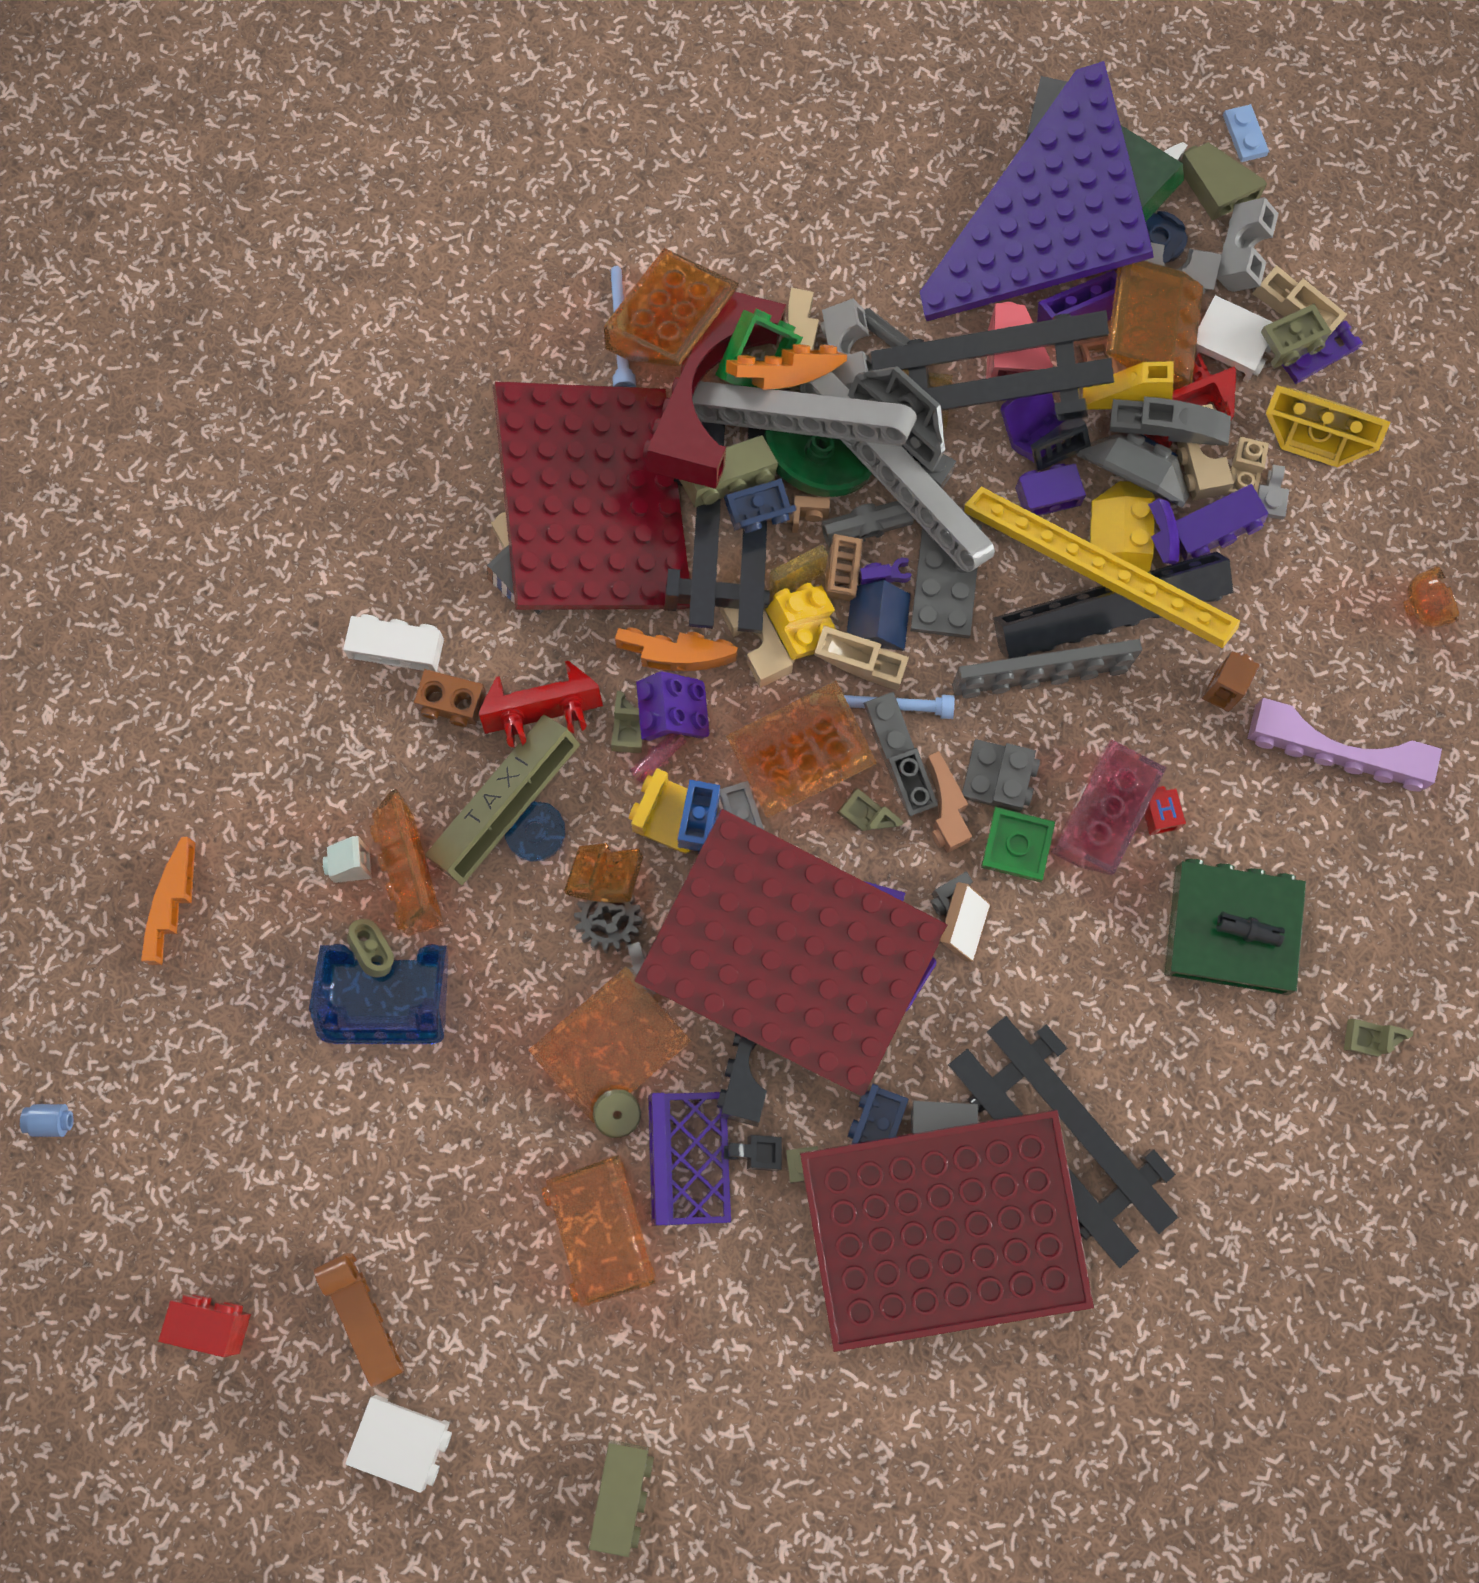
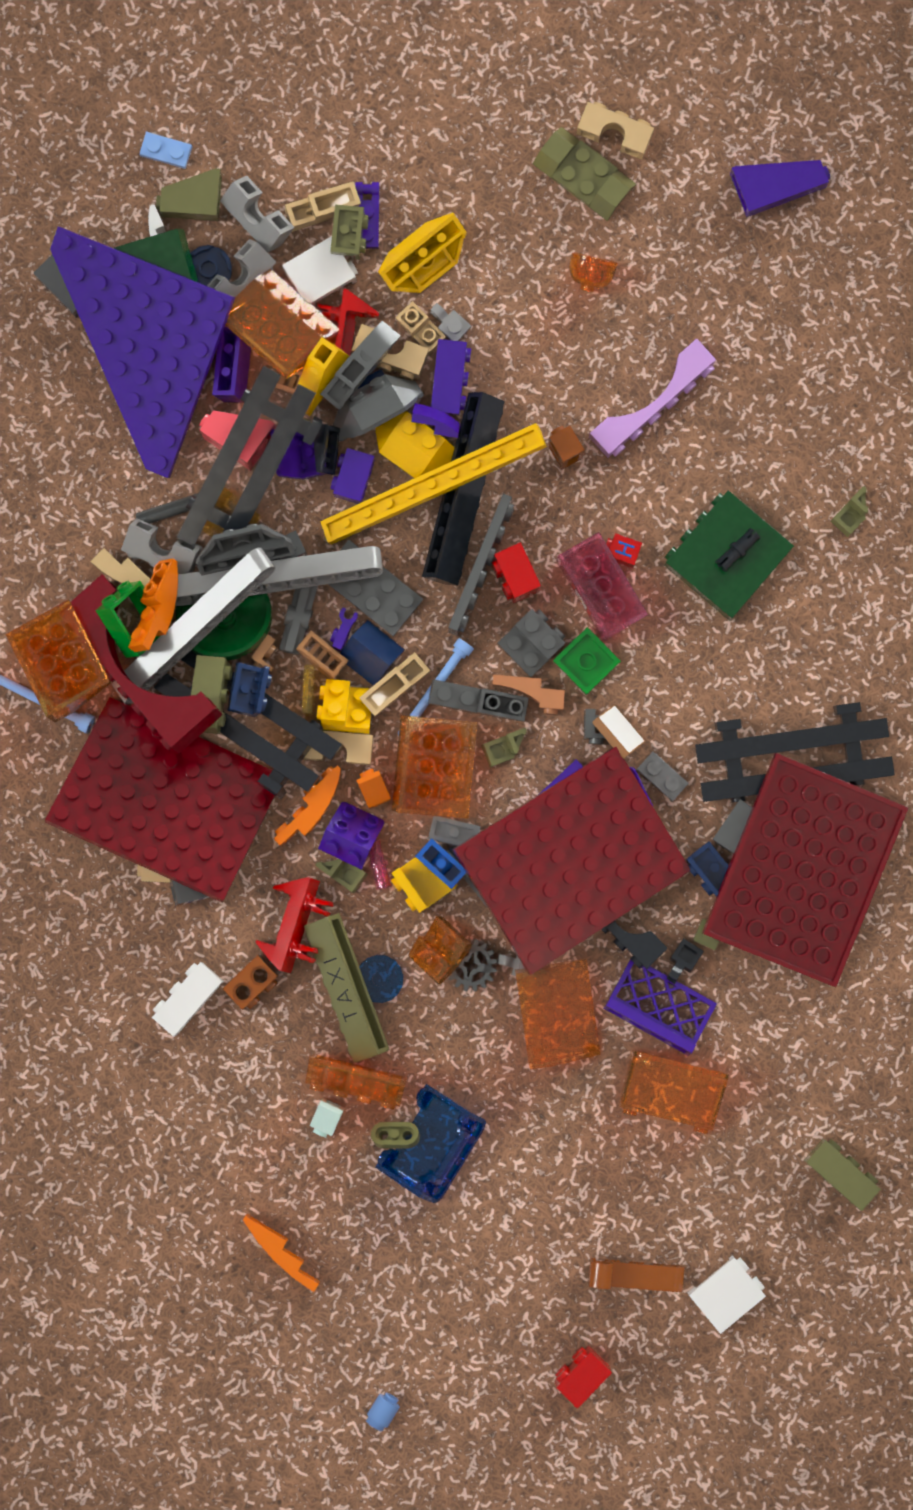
camera: 55 degrees left, 10 degrees up
(616, 1101) = (595, 1032): olive piece -> none
(736, 698) = (373, 788): none -> orange slope
(946, 1004) = (662, 776): none -> flat silver plate
(1062, 709) = (516, 573): none -> red brick

